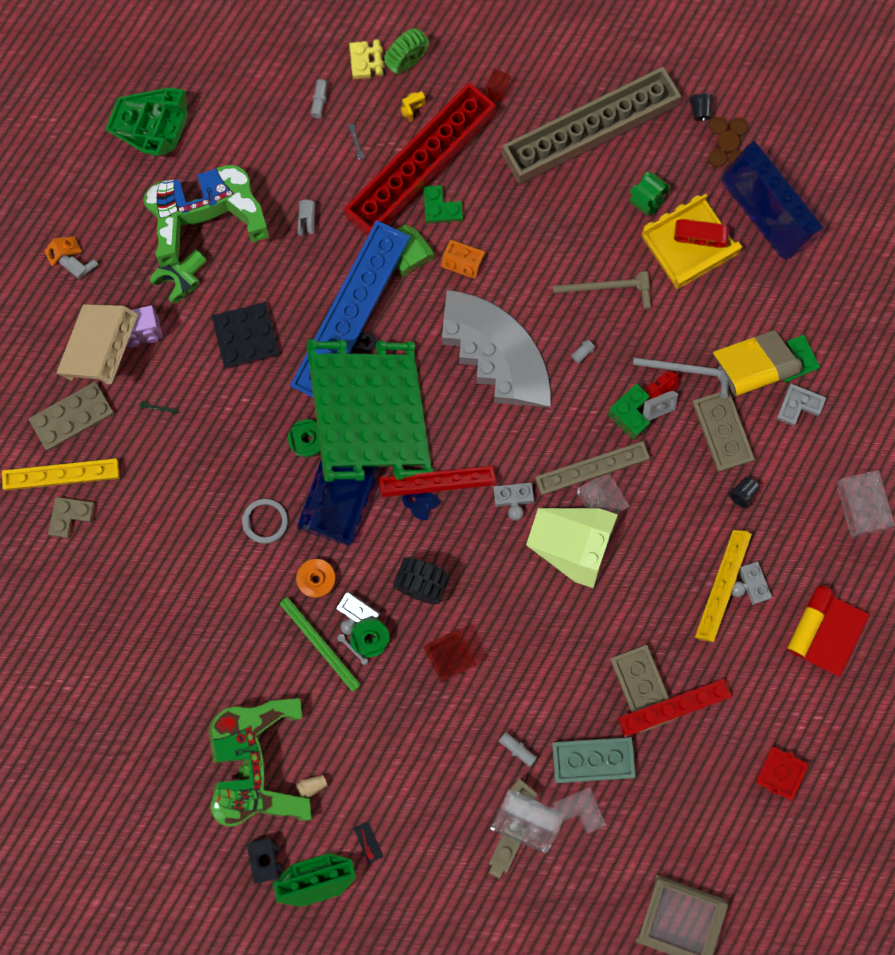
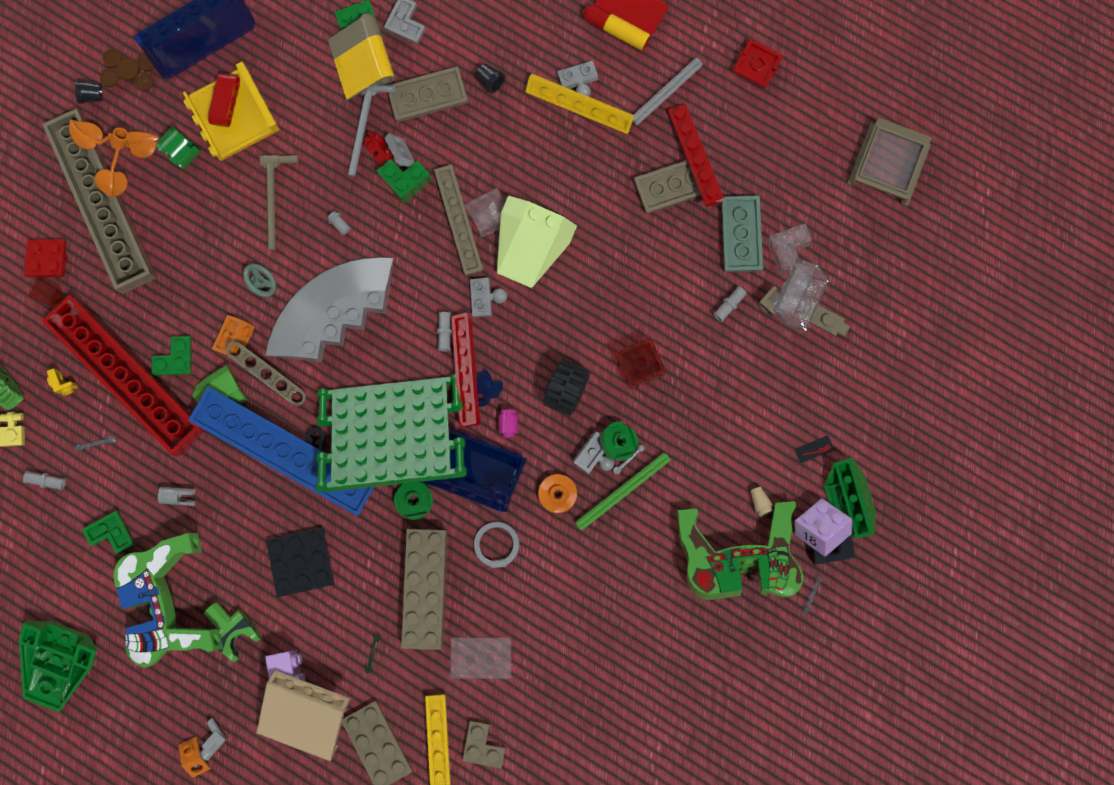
camera: 80 degrees left, 5 degrees up
(153, 509) = (481, 657): none -> clear brick
(219, 453) = (424, 589): none -> dark tan brick
(233, 848) = (818, 579): none -> clear light blue hinge
(275, 161) = (111, 528): none -> green plate
(284, 848) = (823, 527): none -> lavender brick
(385, 526) = (508, 423): none -> dark pink brick
(425, 300) = (256, 371): none -> dark tan beam
(476, 459) = (444, 331): none -> light grey pin
(518, 277) = (257, 282): none -> sand green piece
(533, 82) = (45, 258): none -> red plate
(654, 108) = (88, 135): none -> orange plant
(744, 677) = (666, 91): none -> light grey axle

